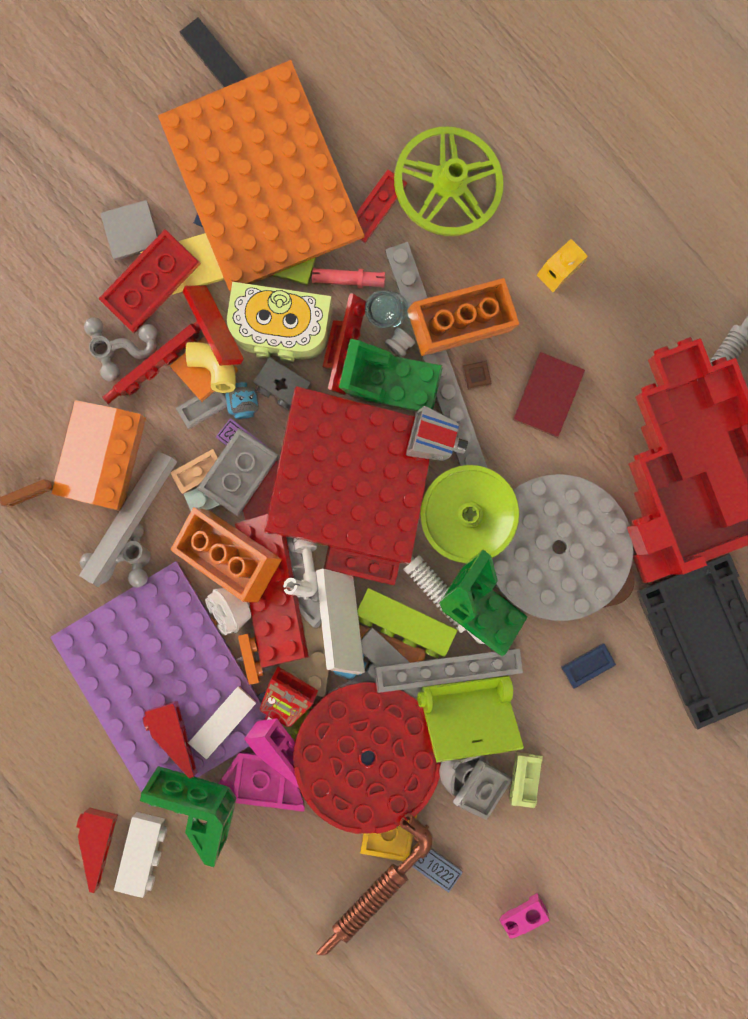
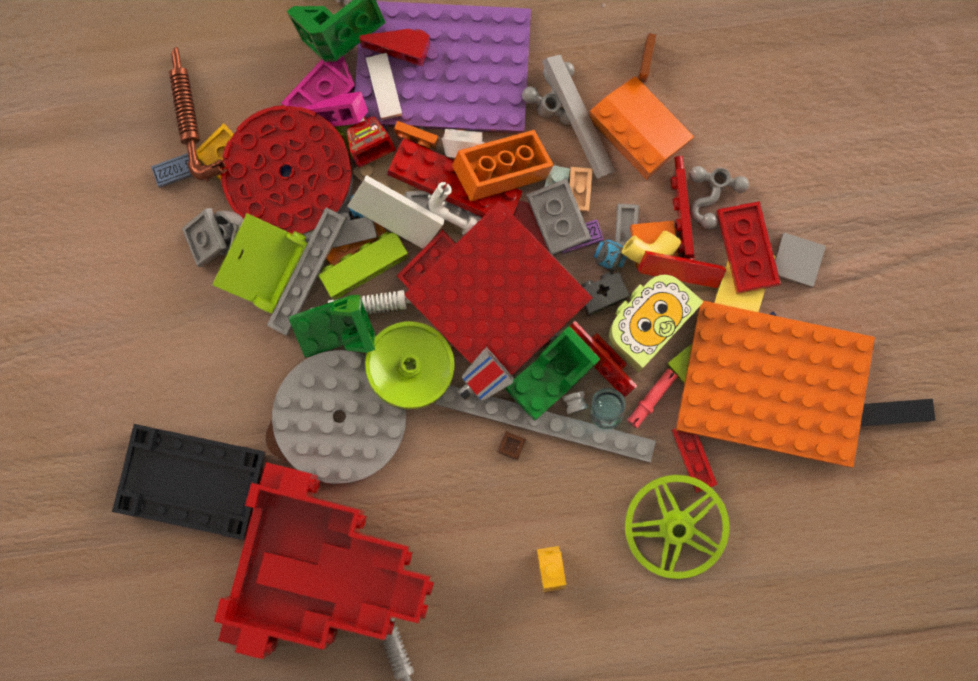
camera: 130 degrees right, 5 degrees down
(462, 316) = (562, 461): orange brick -> none
(525, 780) = (189, 275): yellowish green hinge -> none
(525, 917) = (94, 208): dark pink leg -> none
(548, 394) = (459, 490): dark red tile -> none
(588, 665) = (237, 379): dark blue tile -> none

